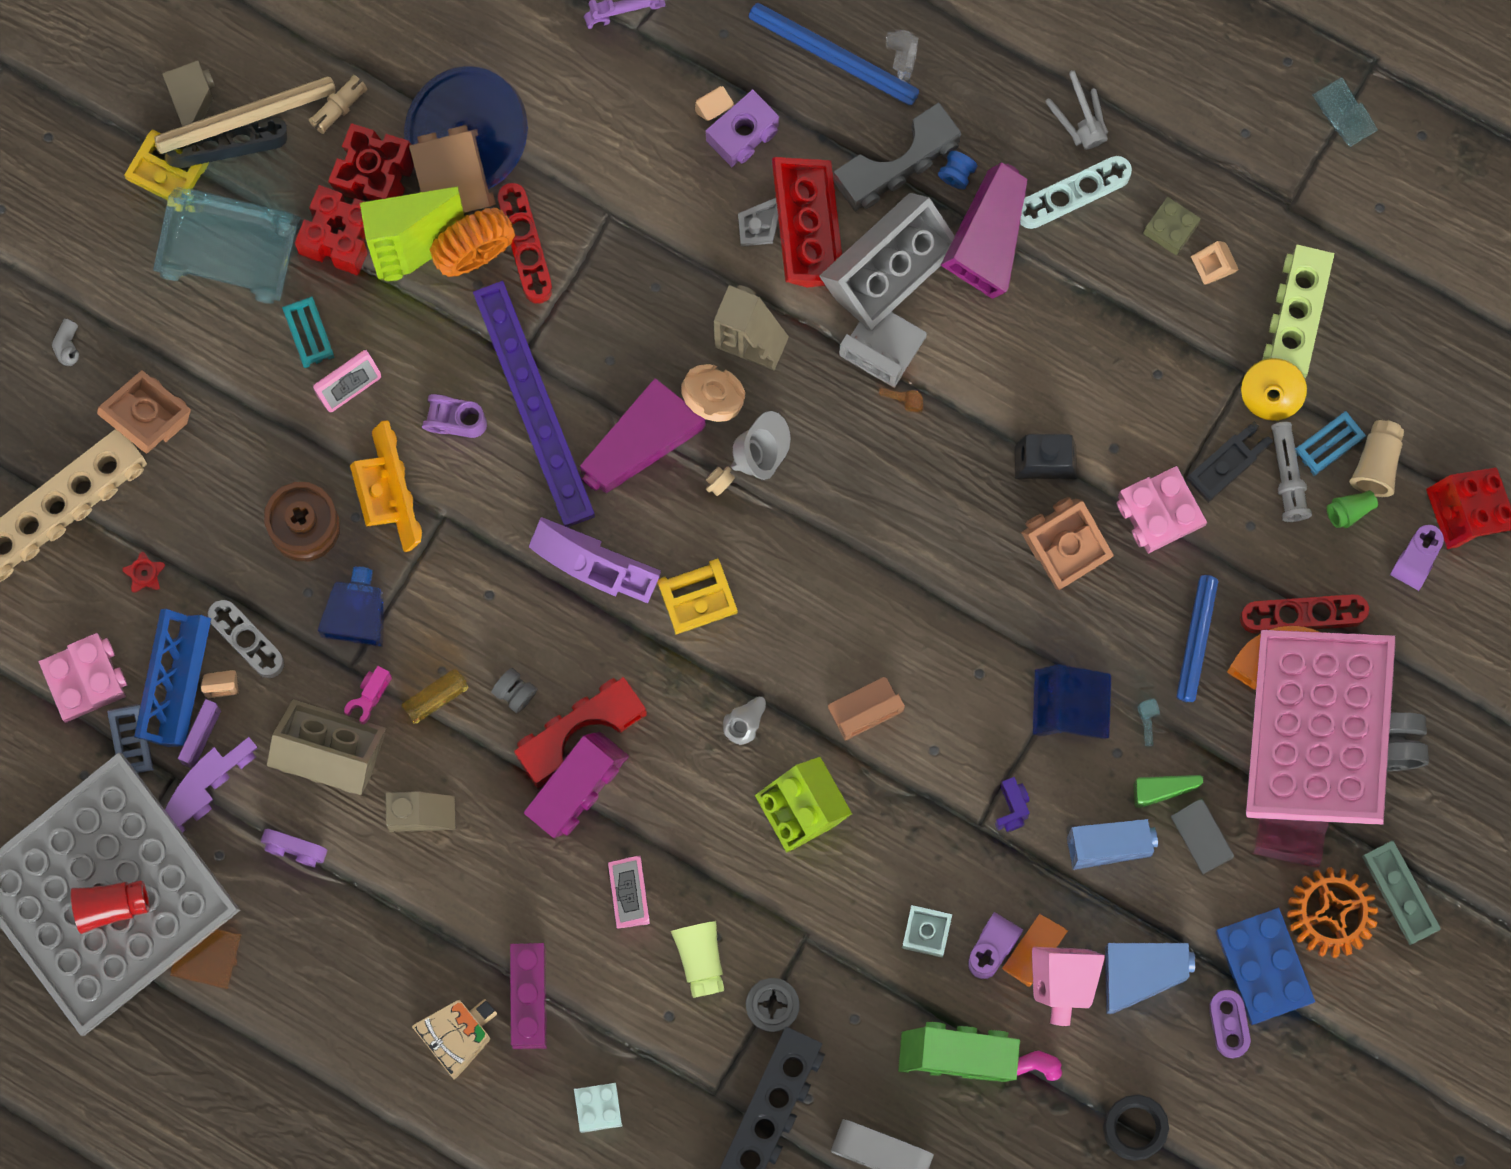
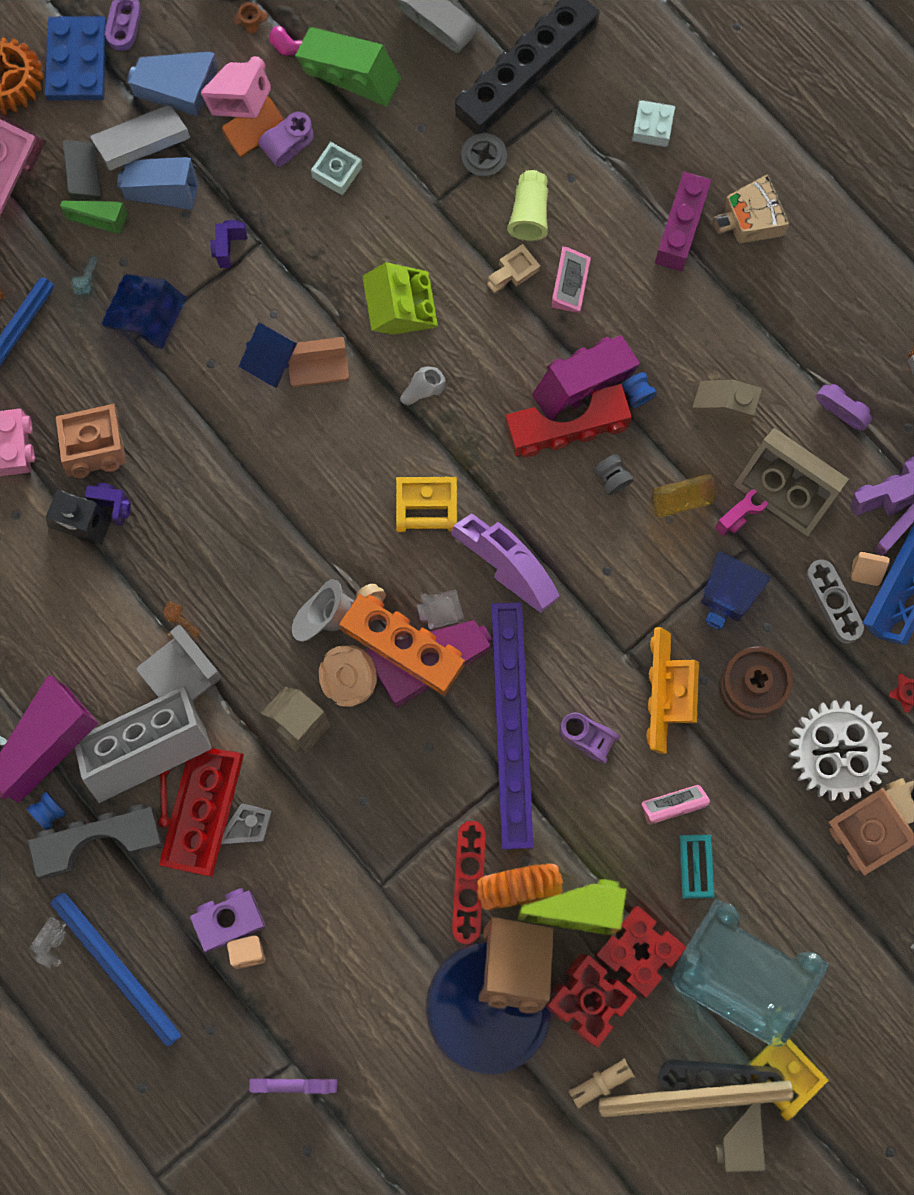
camera: 160 degrees left, 0 degrees up
(188, 459) = (843, 777): none -> white gear
(517, 790) = (638, 390): none -> blue wheel
(621, 409) = (438, 677): none -> orange brick
(645, 495) = (440, 609): none -> clear bracket
(690, 885) = (515, 266): none -> tan plate
(842, 200) = (163, 821): none -> red hinge
(919, 692) = (267, 354): none -> clear blue piece
(1025, 491) = (108, 496): none -> dark purple bracket
(1101, 1078) = (250, 9): none -> dark orange plate
(1152, 887) = (139, 137): none -> light grey tile

